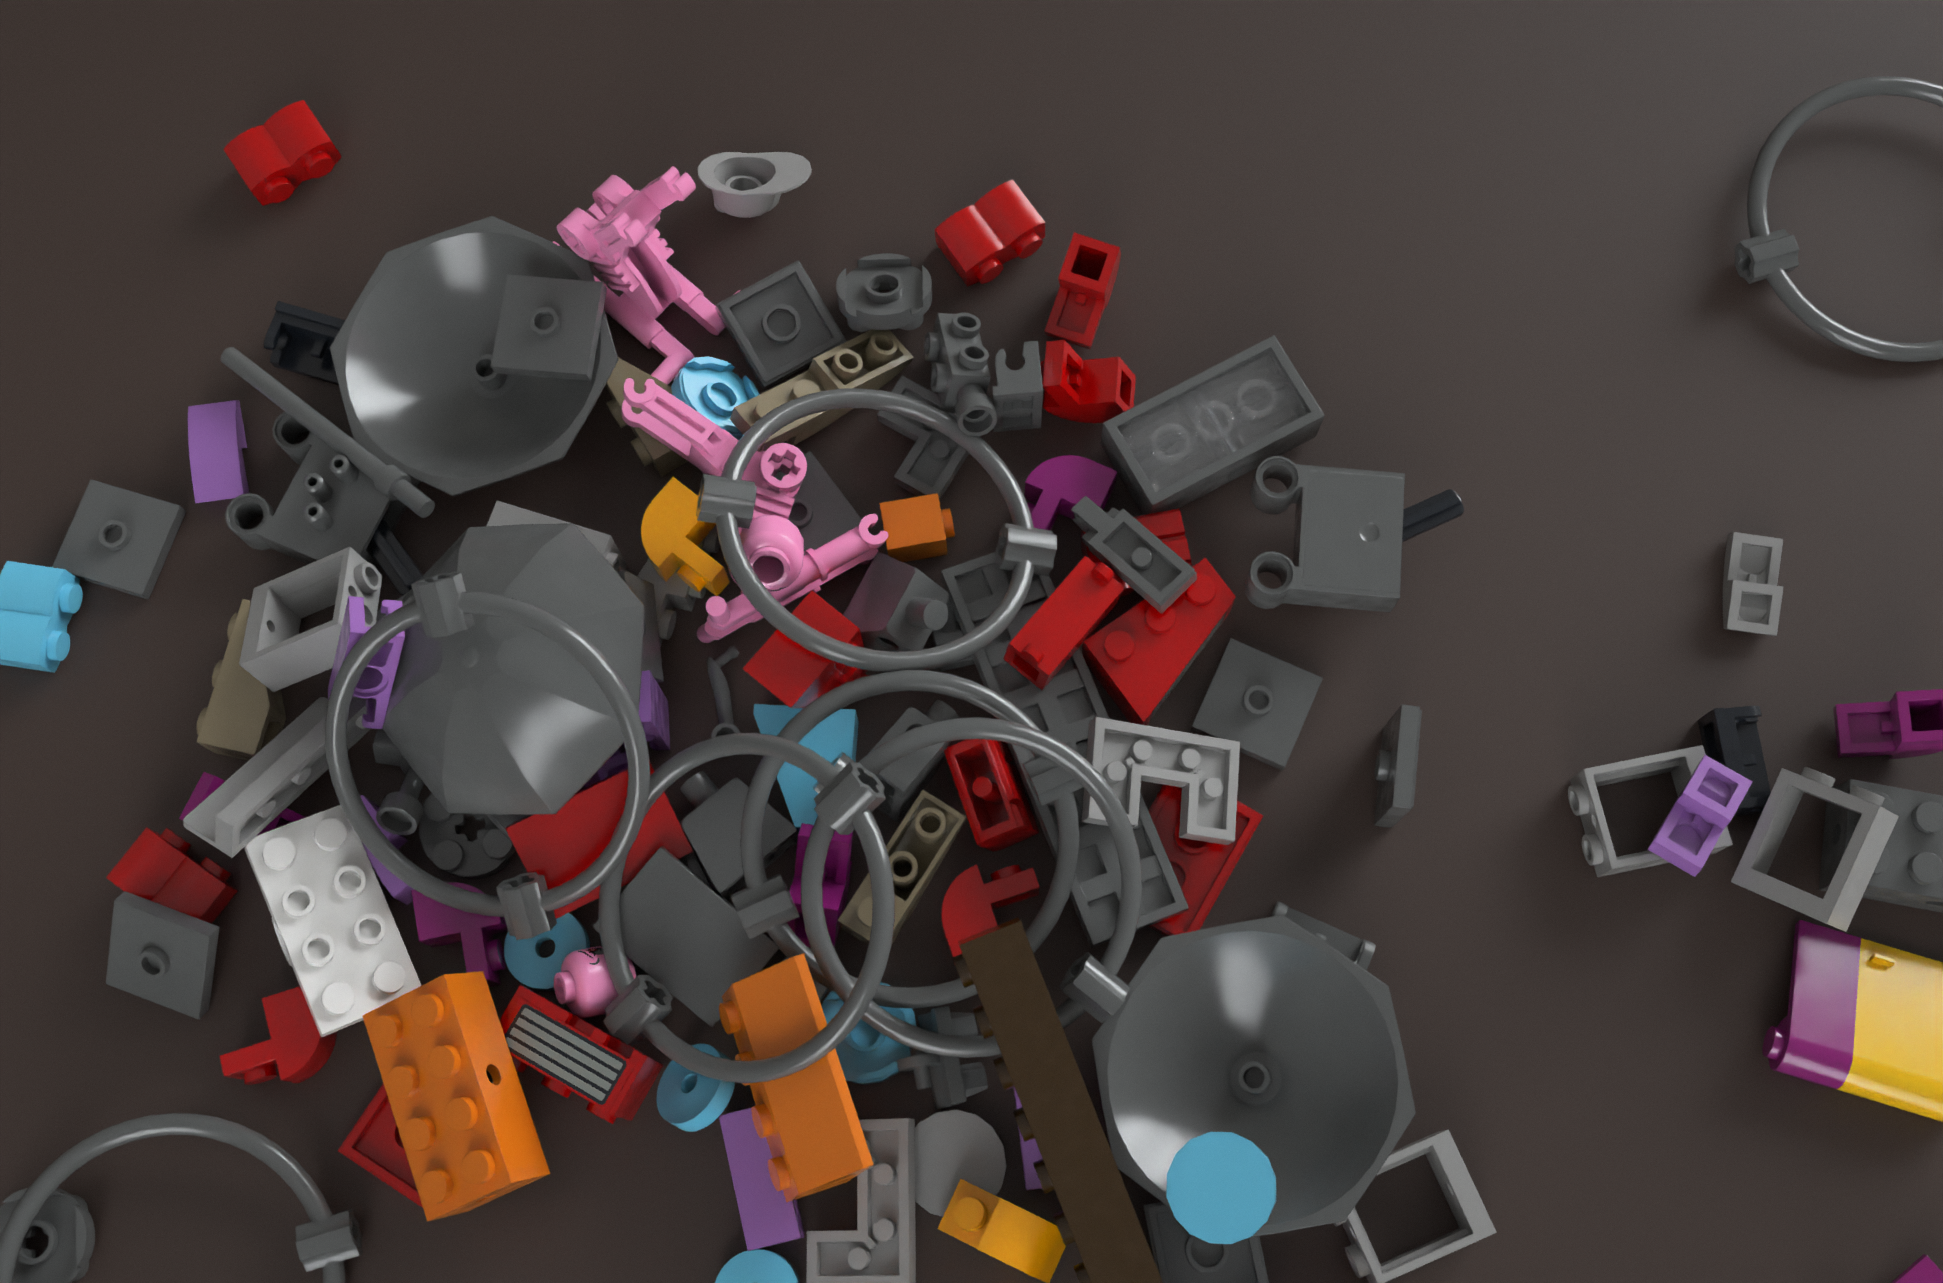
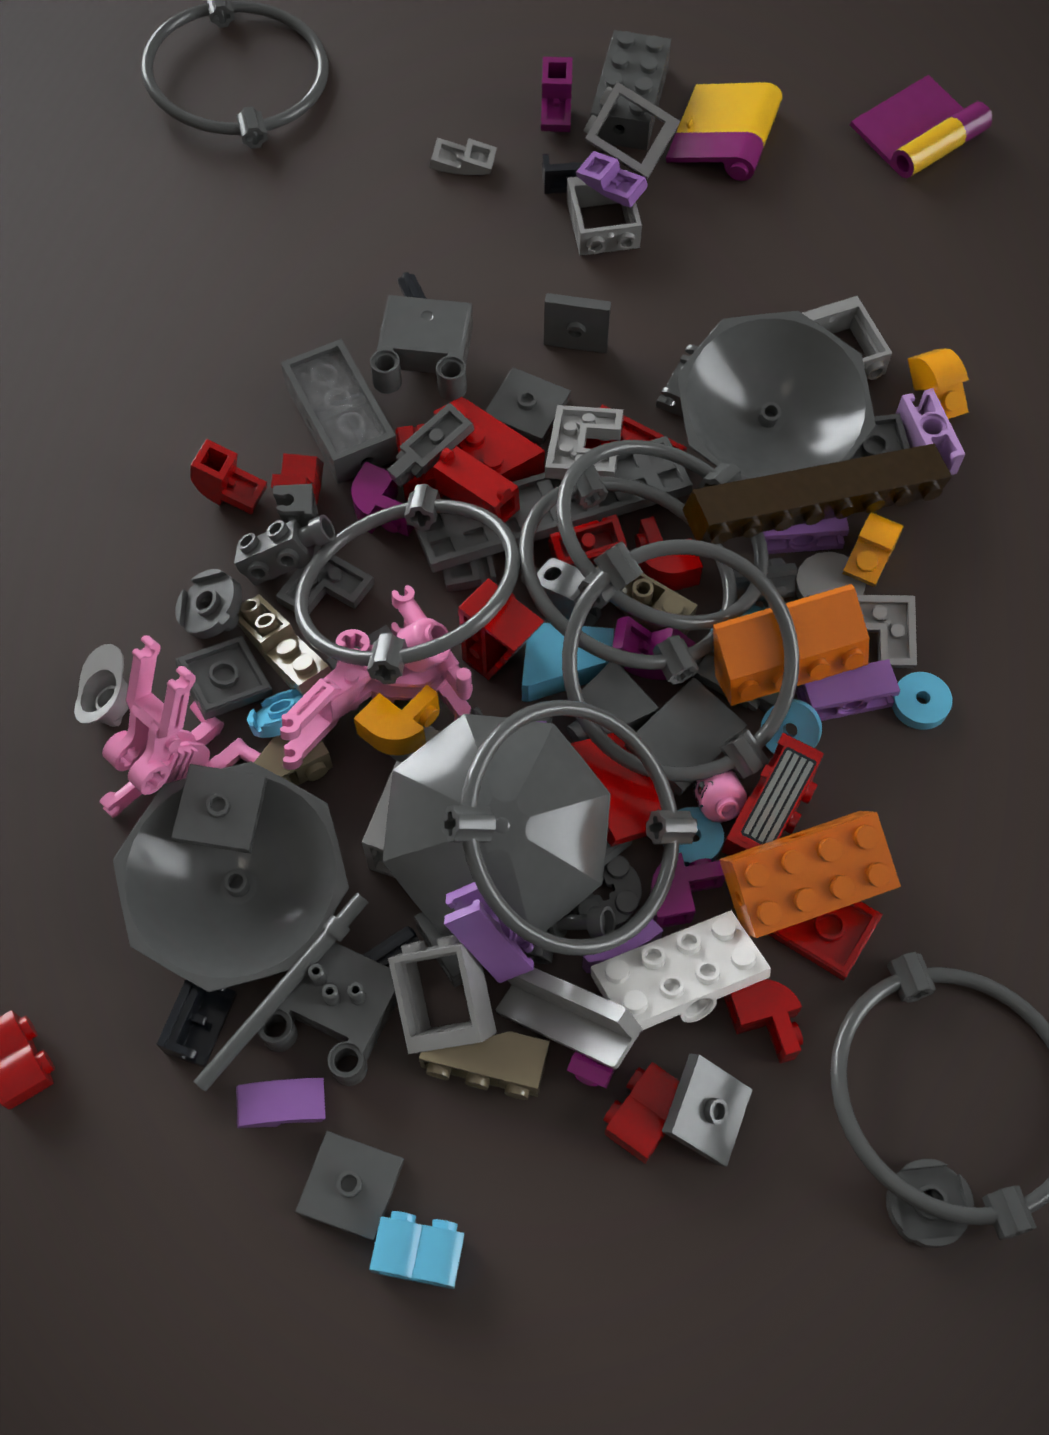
camera: 90 degrees left, 10 degrees down
(897, 606) = (449, 587): dark grey torso -> none
(916, 527) = (387, 579): orange brick -> none
(990, 234) = (171, 539): red brick -> none
(1221, 1187) = (845, 416): medium azure tile -> none

